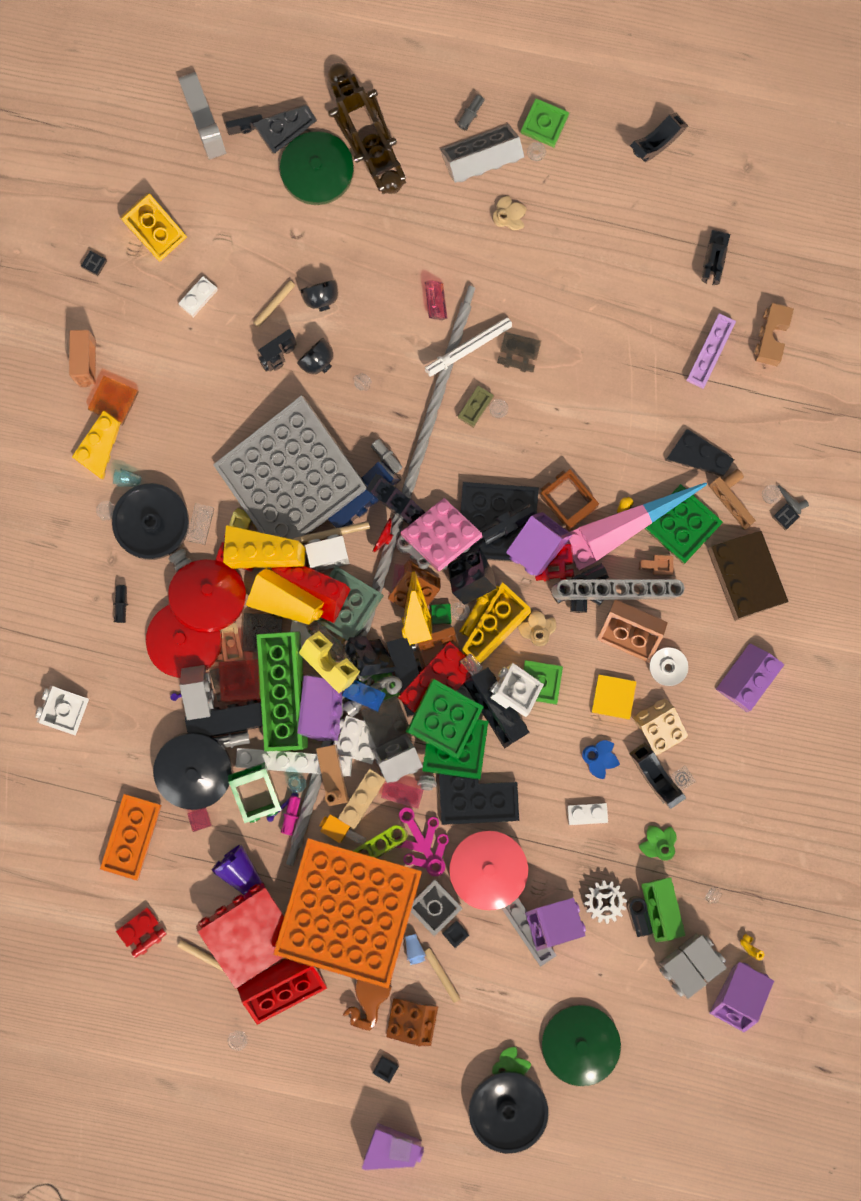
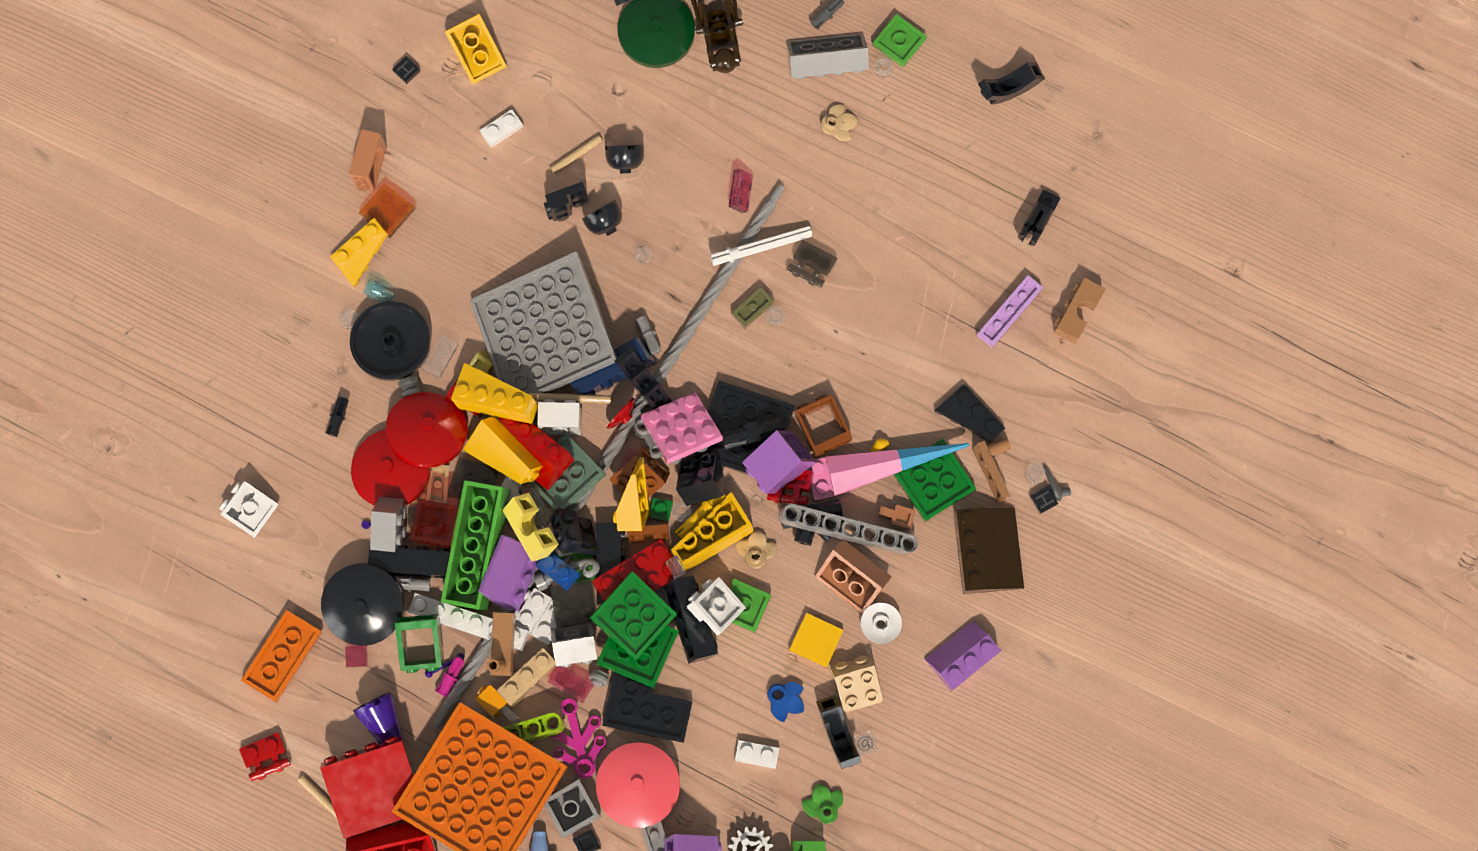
camera: 15 degrees right, 5 degrees down
(301, 786) = (468, 648): clear light blue cone -> none

